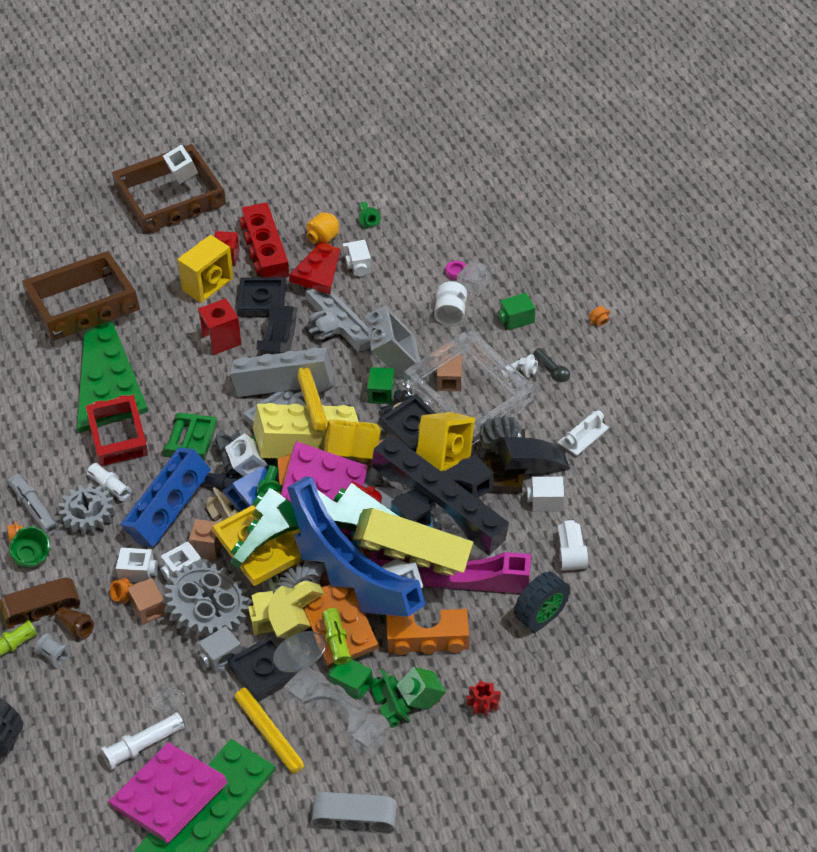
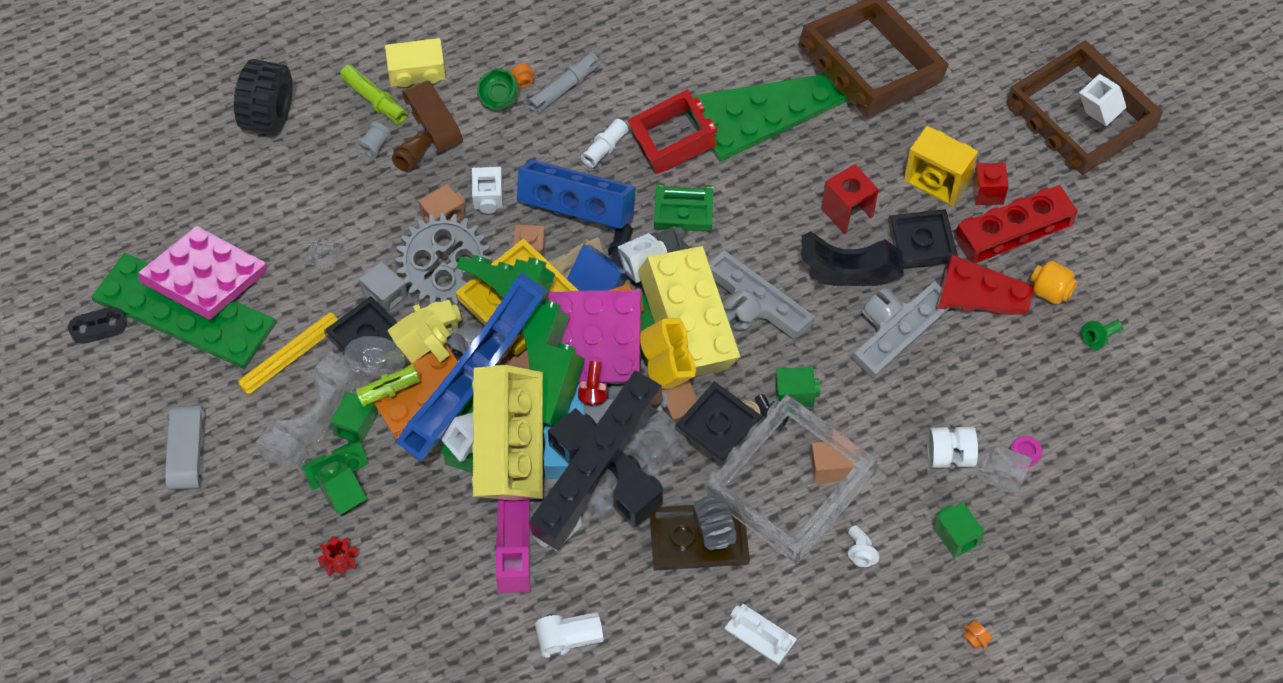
camera: 80 degrees right, 10 degrees up
(74, 512) = (560, 128): light grey gear -> none
(119, 590) = (457, 183): orange plate -> none
(131, 745) = (261, 232): white pin -> none
(177, 557) = (497, 230): white brick -> none
(269, 481) = (590, 282): green plate -> none
(280, 371) = (784, 274): light grey brick -> none
(312, 399) = (721, 301): yellow axle -> none
(357, 257) = (1012, 331): white brick -> none
(392, 340) = (859, 407): light grey window -> none
(445, 438) = (683, 456): yellow brick -> none
(448, 634) = (427, 511): orange arch -> none
(532, 455) = (697, 570): black slope -> none
(541, 601) = (466, 598): black wheel -> none
(546, 494) = (648, 595): white brick -> none
(558, 373) = (866, 597): pearl dark grey bar -> none

